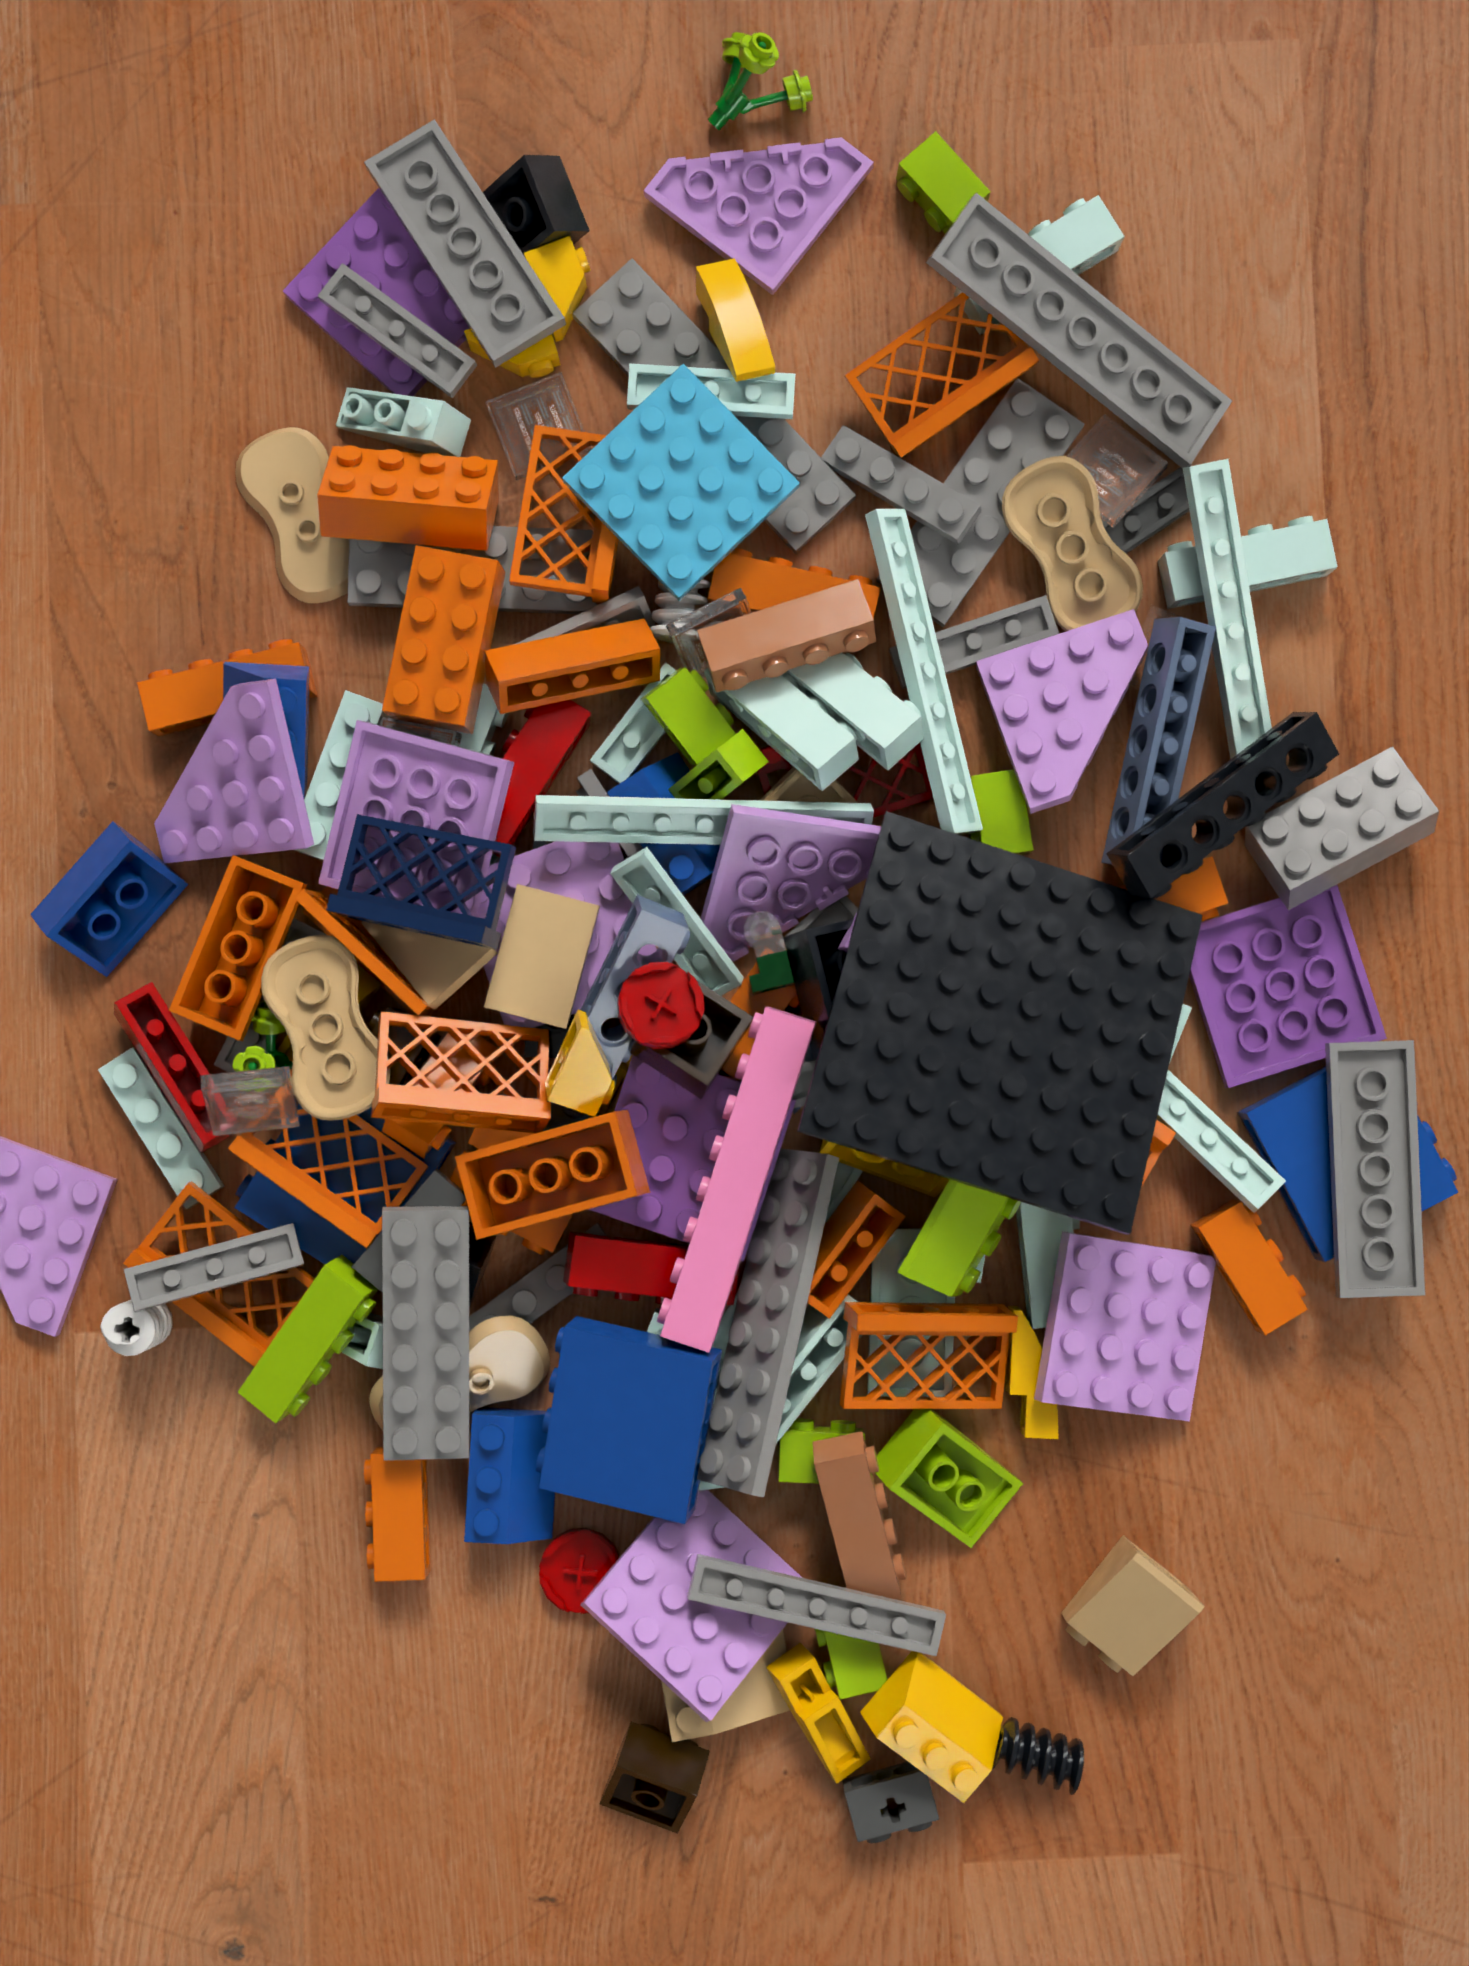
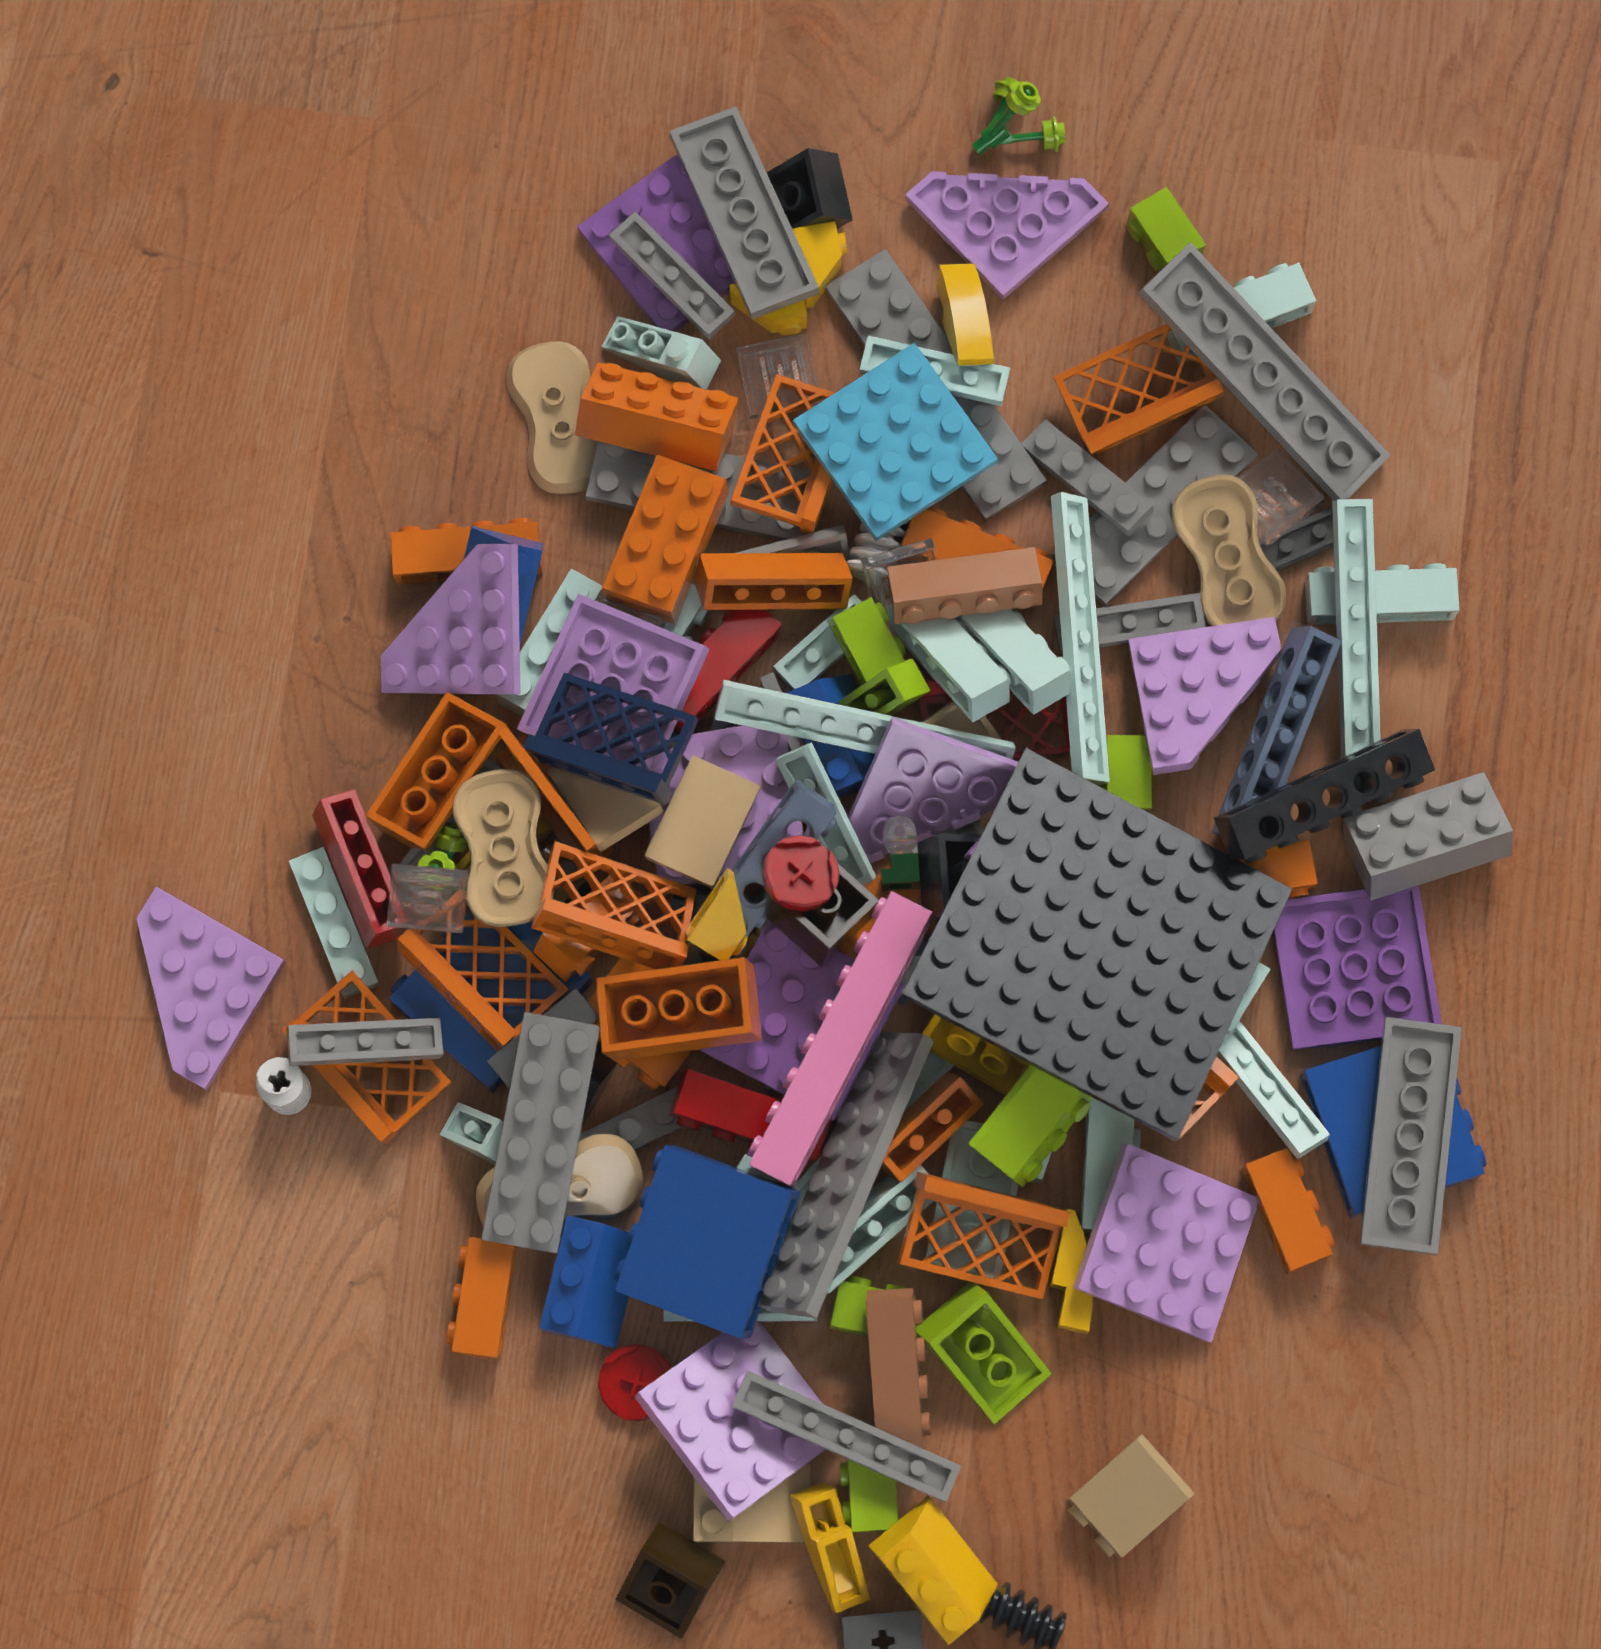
camera: 10 degrees right, 10 degrees down
(108, 899) = (328, 715): blue slope -> none
(309, 1339) = (434, 1125): lime brick -> none

